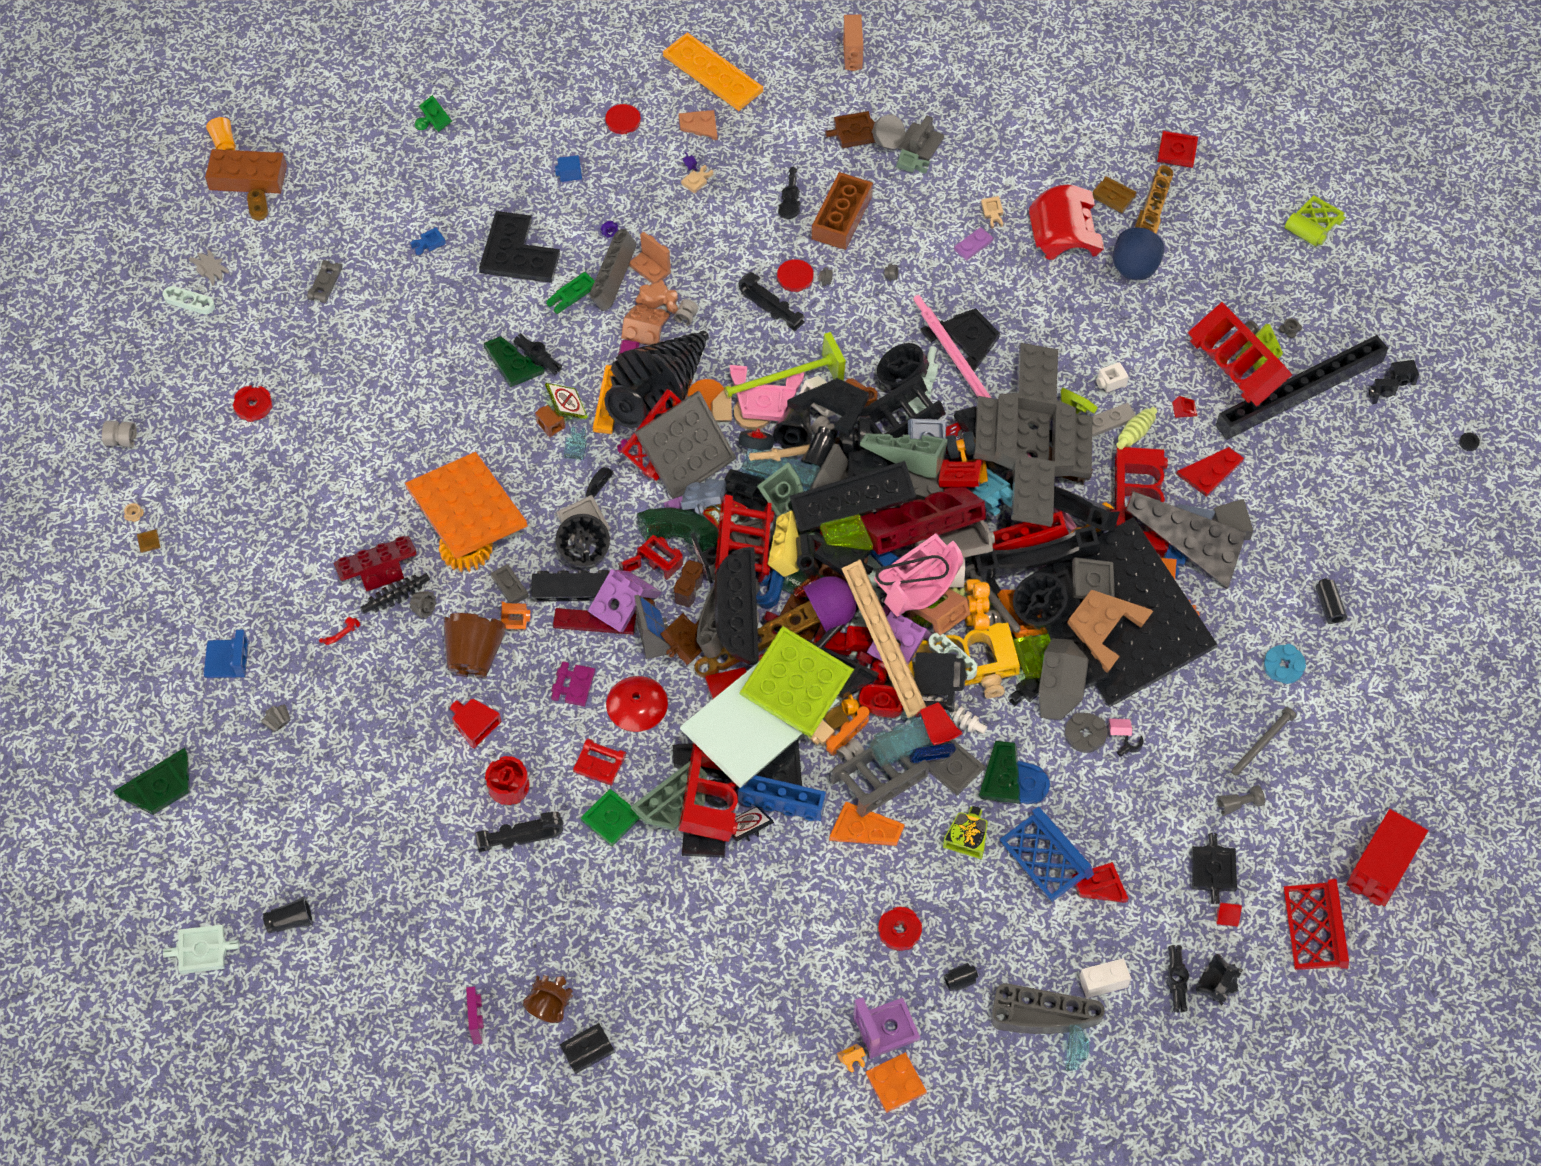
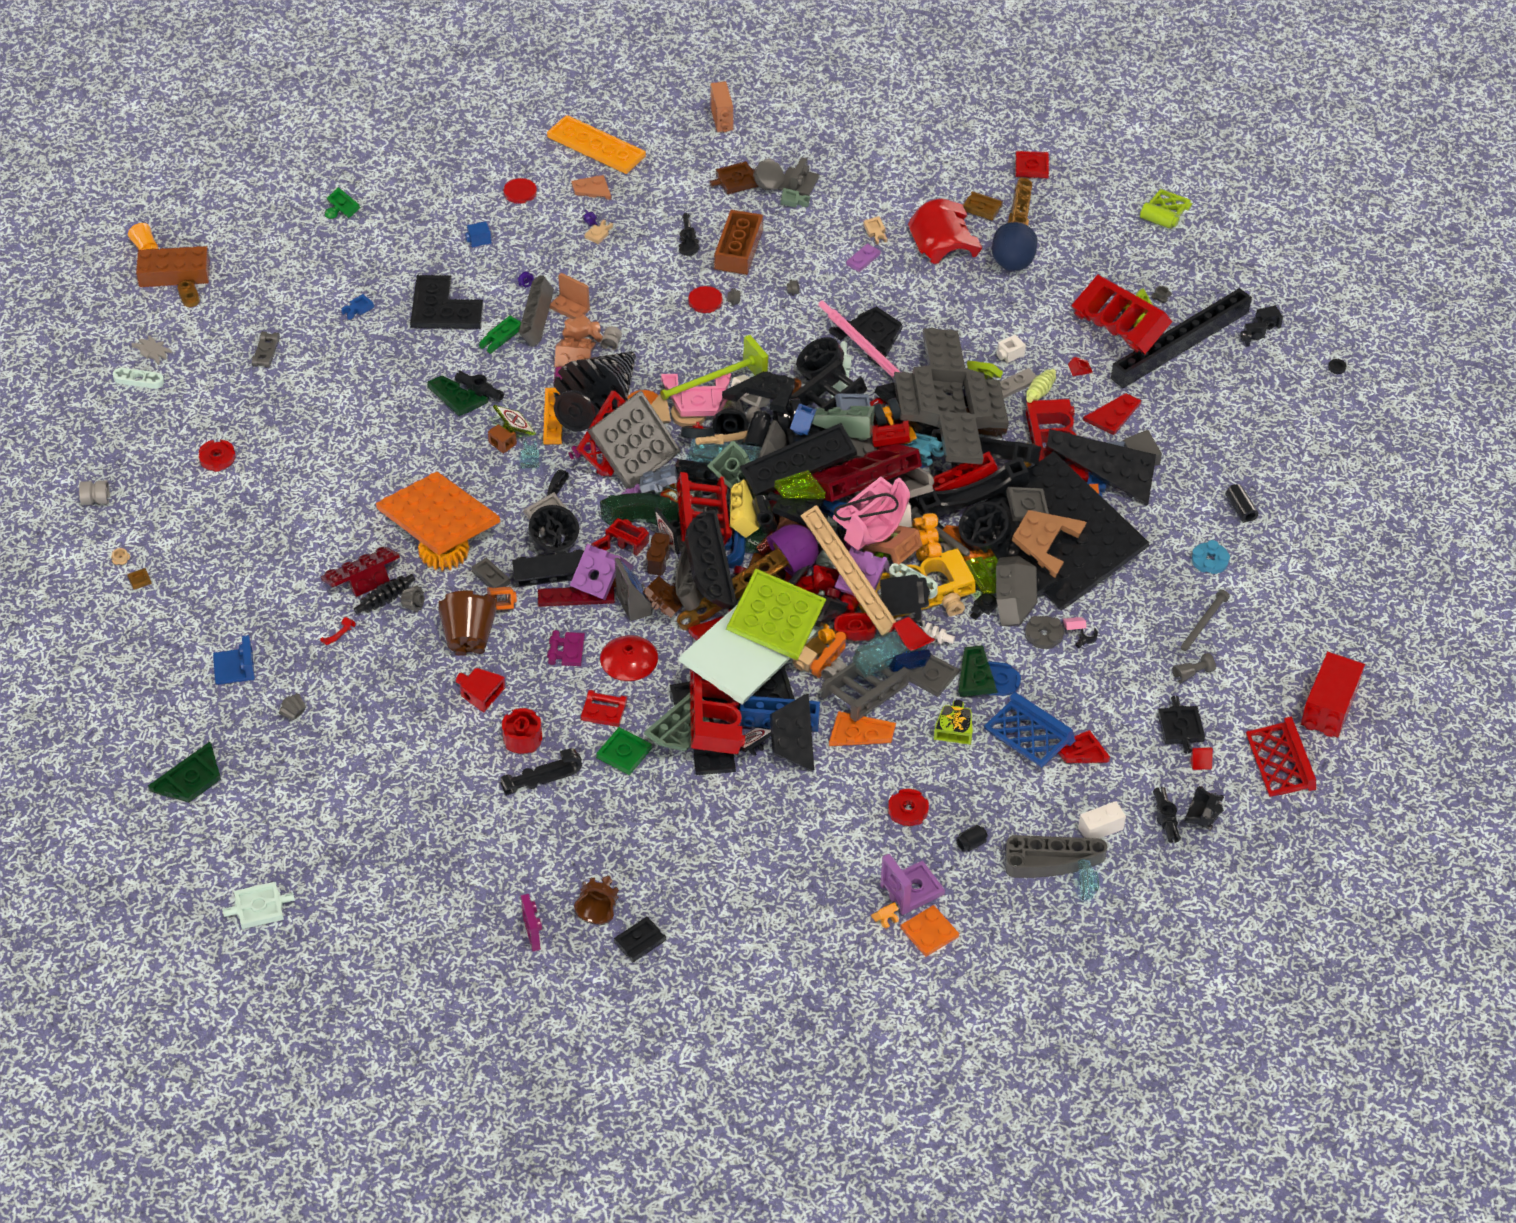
camera: 10 degrees left, 10 degrees down
(288, 916) = (337, 867): black plant -> none
(768, 301) = (685, 322): black piece -> none
(790, 825) = (792, 733): none -> black wing
(865, 449) = (803, 419): none -> brick

